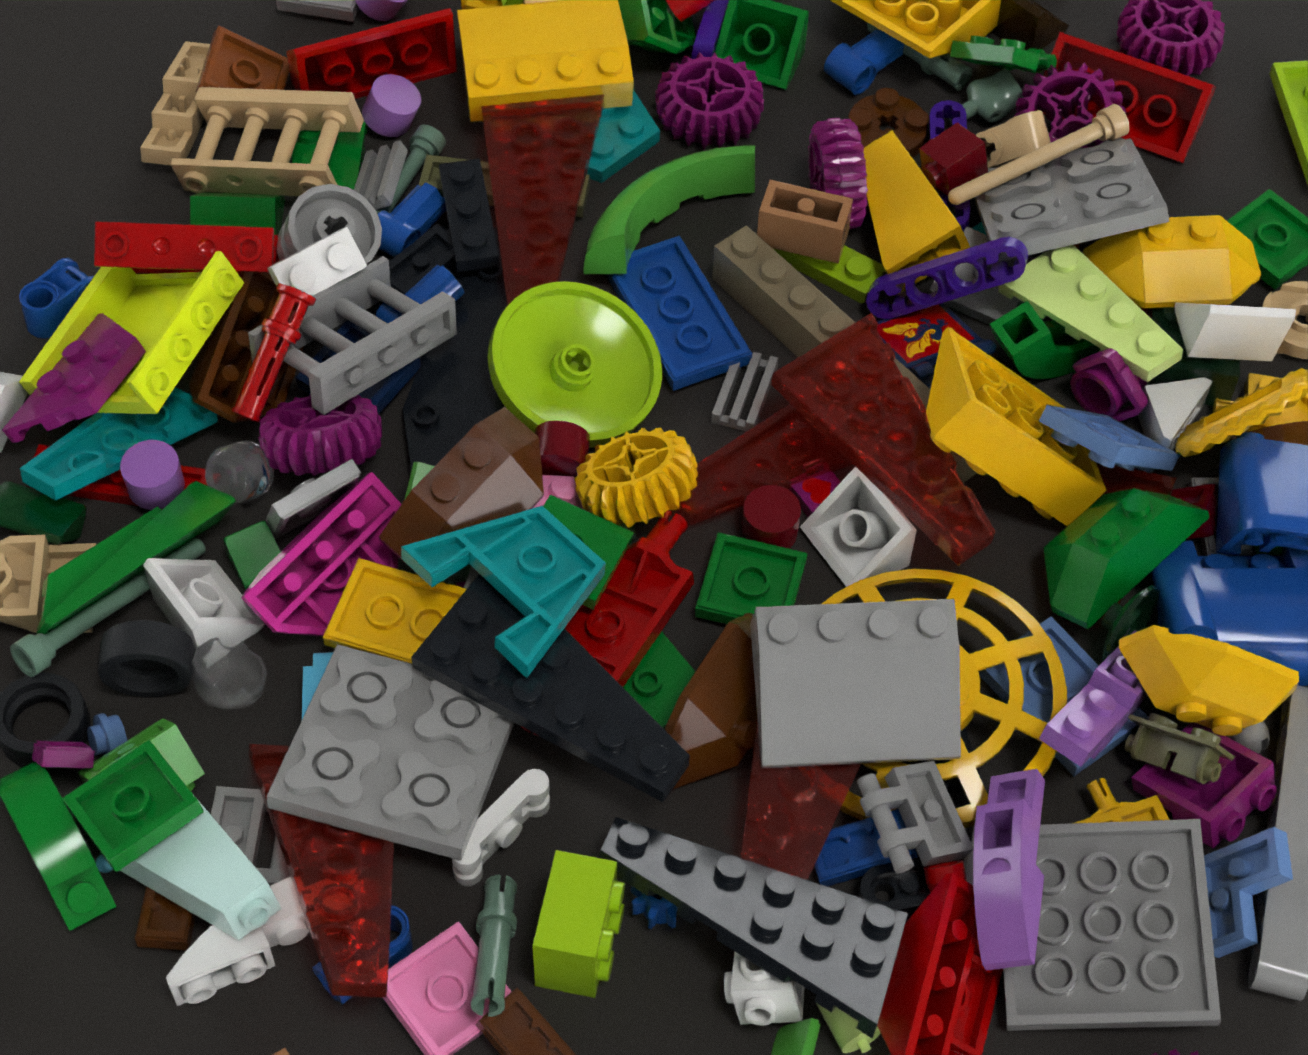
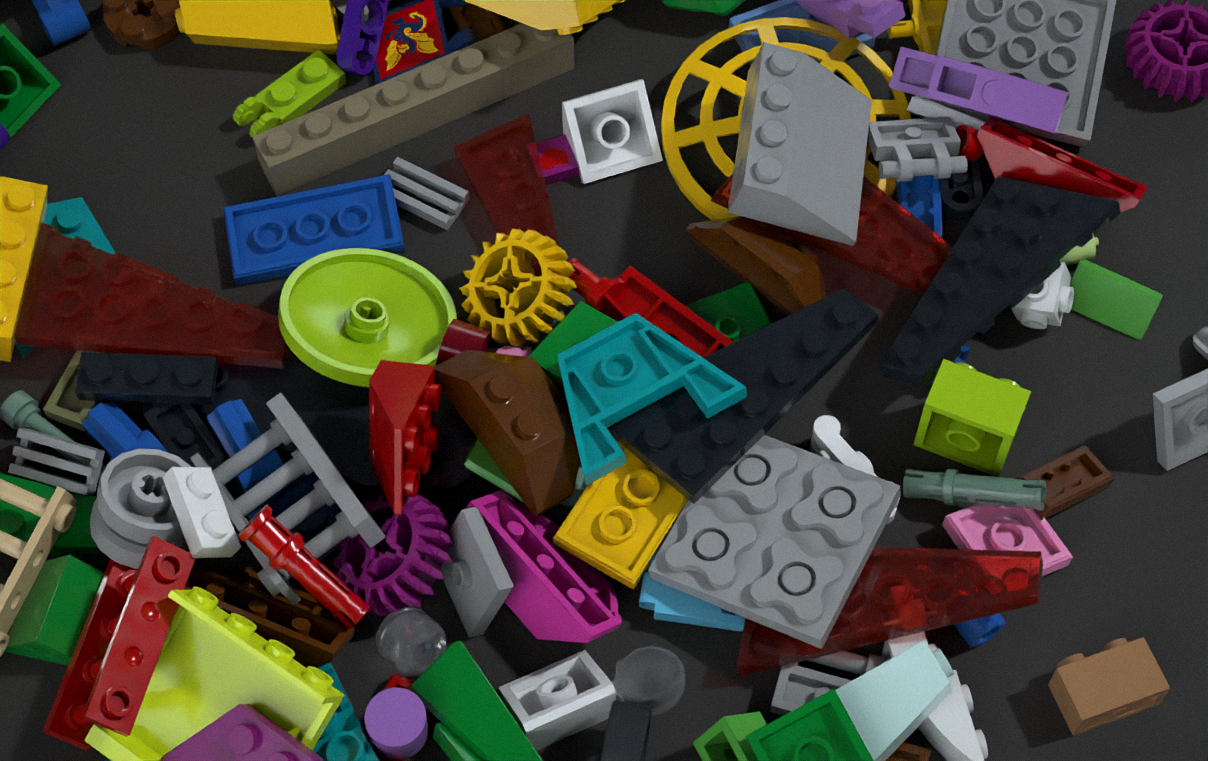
camera: 75 degrees left, 5 degrees up
(251, 551) = (508, 646): green slope -> none
(425, 393) = (402, 427): none -> red slope
(659, 194) = (207, 250): bright green brick -> none
(685, 103) = (56, 132): magenta gear -> none
(748, 576) = (641, 230): green plate -> none
(771, 516) = (578, 199): dark red piece -> none
(804, 221) = (269, 85): medium nougat brick -> none
(839, 163) = (210, 52): magenta gear -> none
(881, 426) = (531, 76): clear red wing -> none

